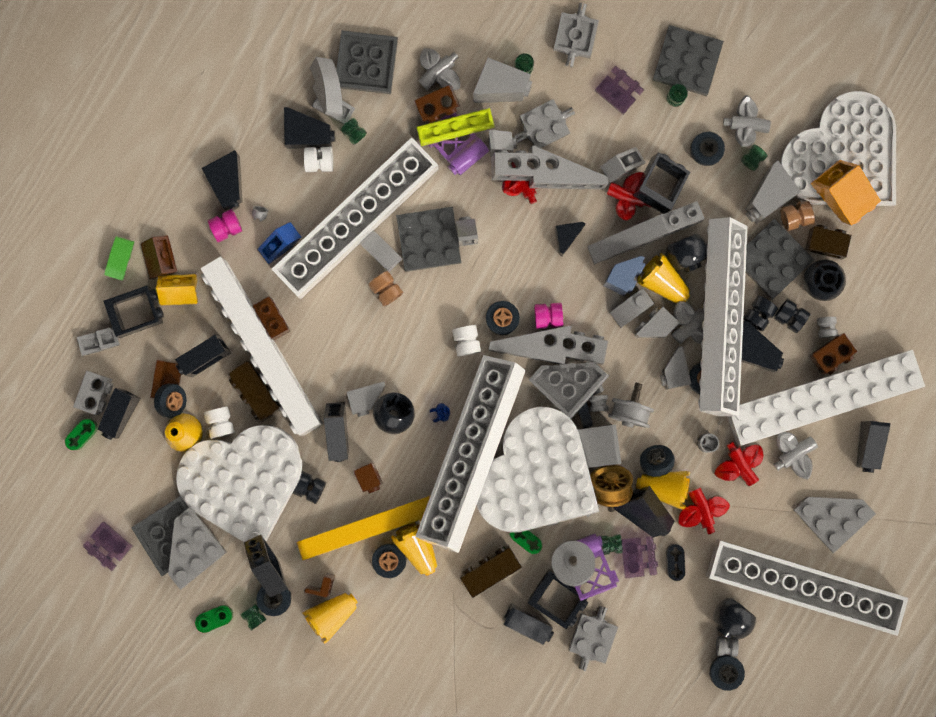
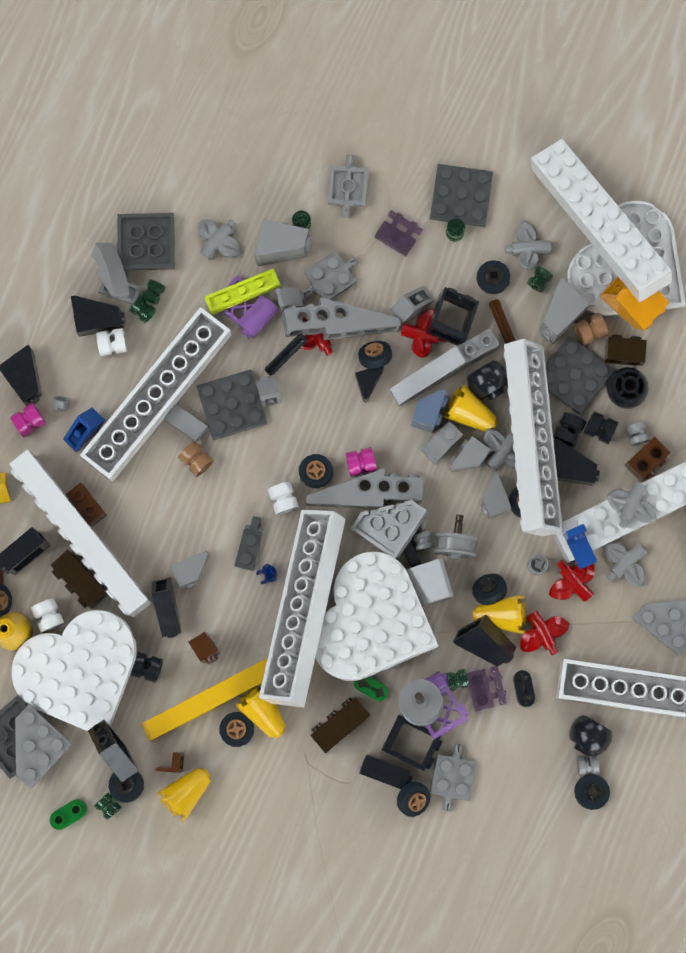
camera: 10 degrees left, 5 degrees down
(366, 114) = (153, 292): none -> clear green wheel
(393, 413) = (220, 580): black wheel -> none
(427, 382) = (249, 545): none -> dark grey hinge
(435, 98) = (219, 267): reddish brown brick -> none
(489, 197) = (285, 354): none -> black axle
(551, 654) = (413, 799): none -> black wheel
(578, 210) = (375, 354): none -> black wheel
(612, 486) = (448, 620): pearl gold wheel -> none
(709, 195) = (501, 321): none -> reddish brown axle
(753, 433) = (580, 546): none -> blue bracket
(811, 399) = (632, 505): none -> light grey plant
(826, 108) = (601, 220): none -> white brick

